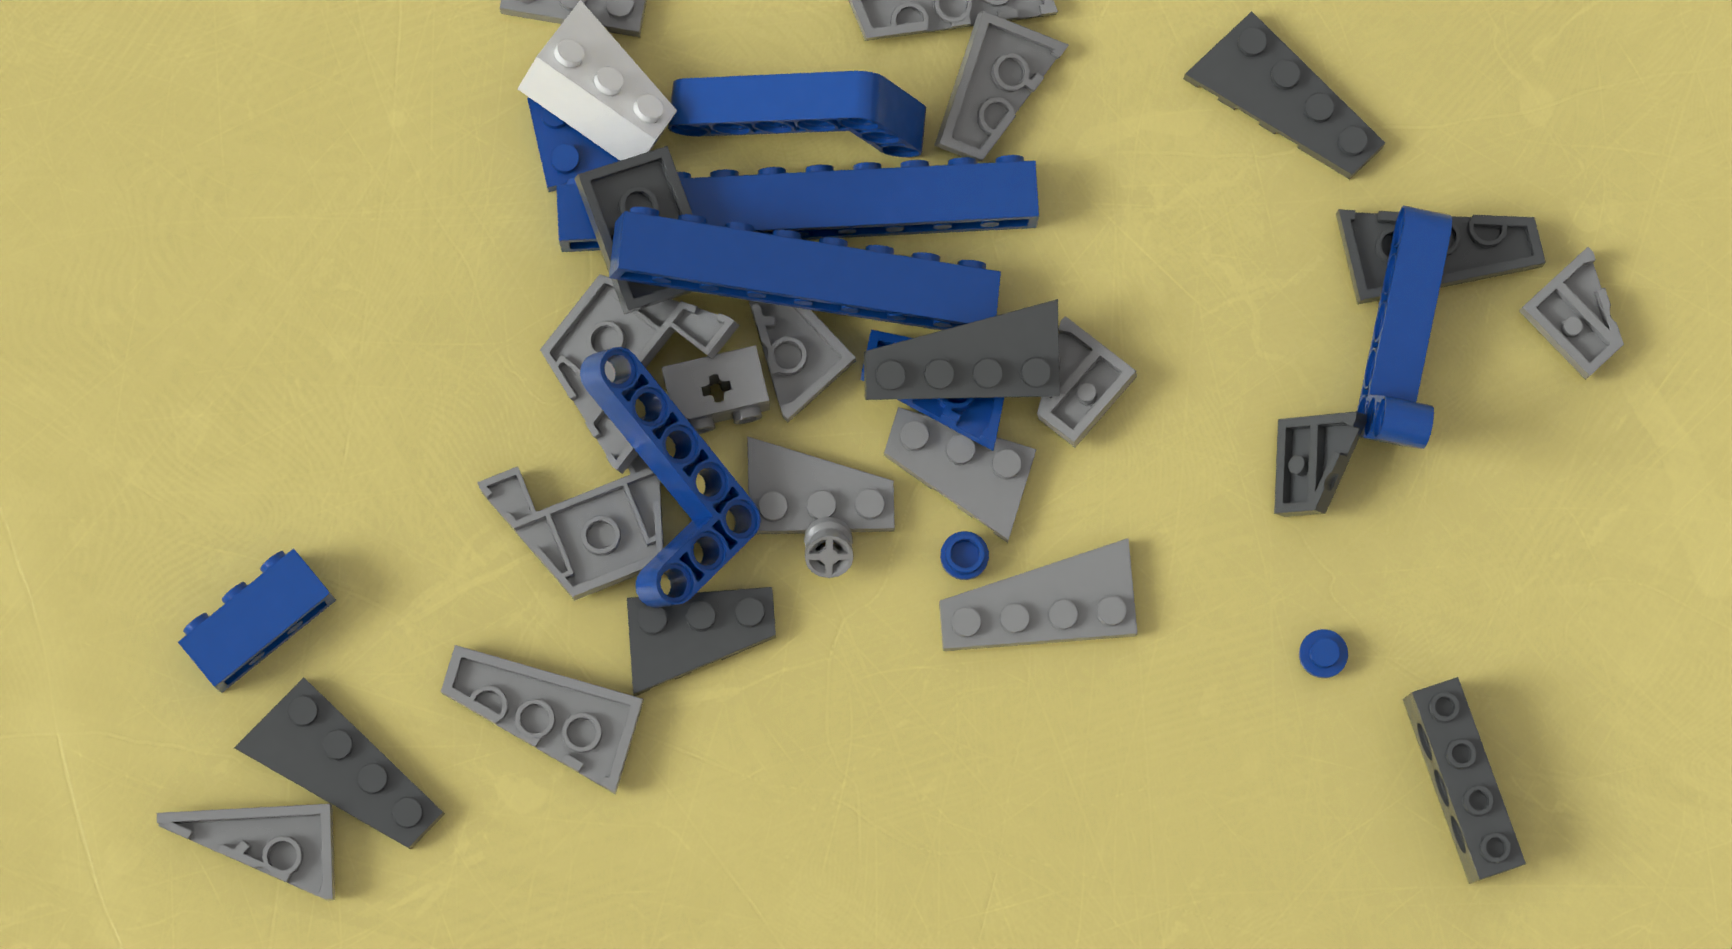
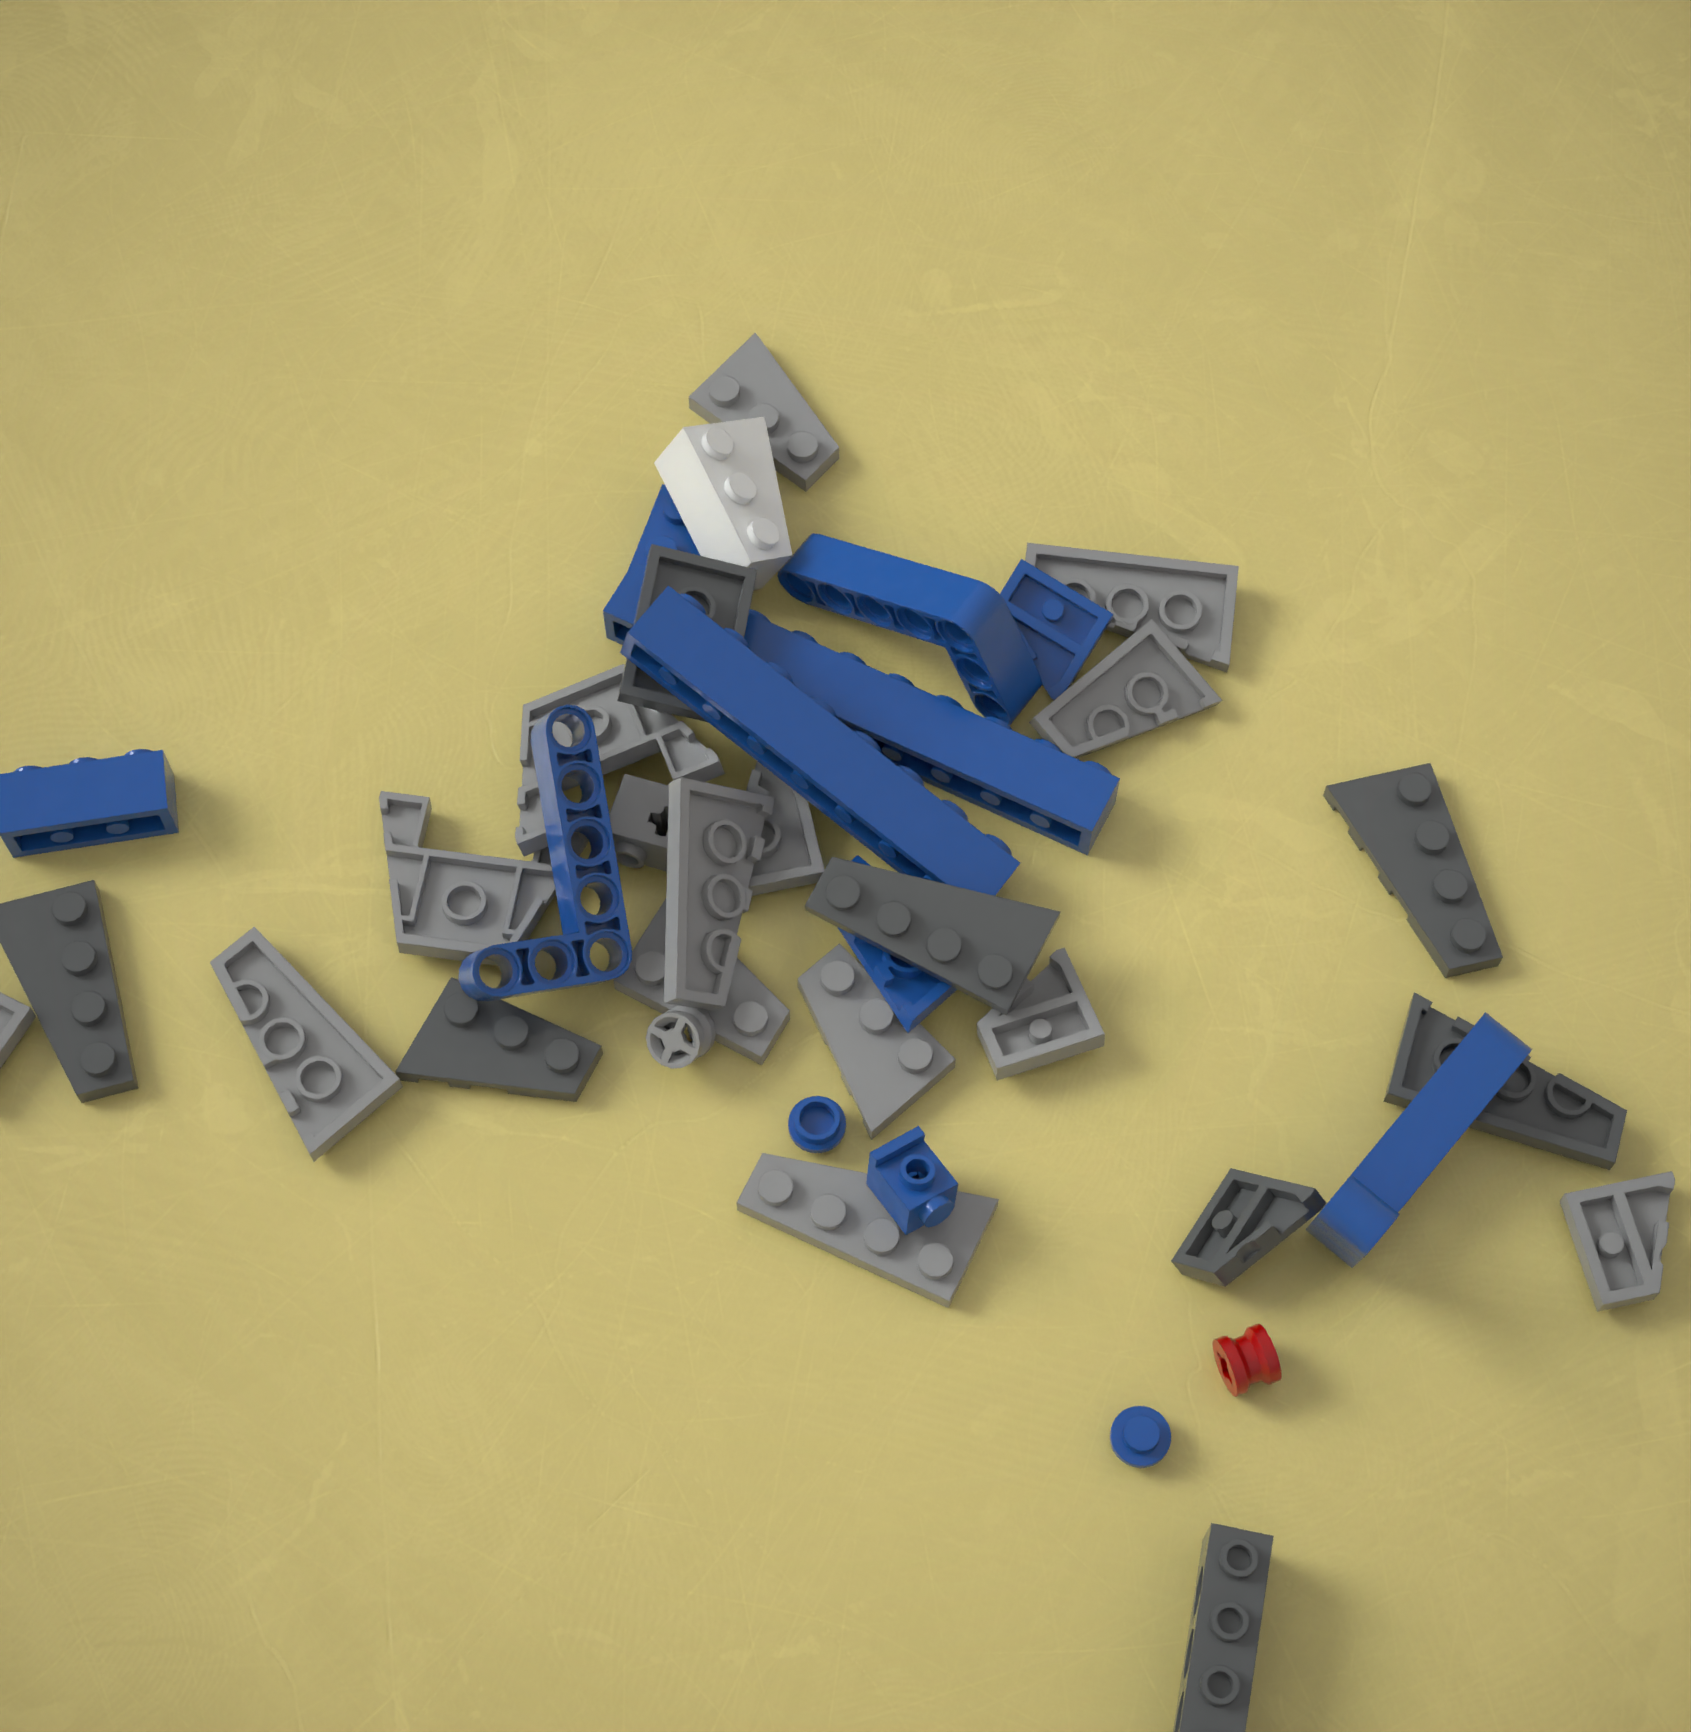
camera: 35 degrees right, 15 degrees down
(774, 406) = (709, 870): none -> light grey wing
(909, 55) = (1055, 625): none -> blue wing
(1067, 581) = (911, 1182): none -> blue brick
(1367, 557) = (1247, 1360): none -> red wheel

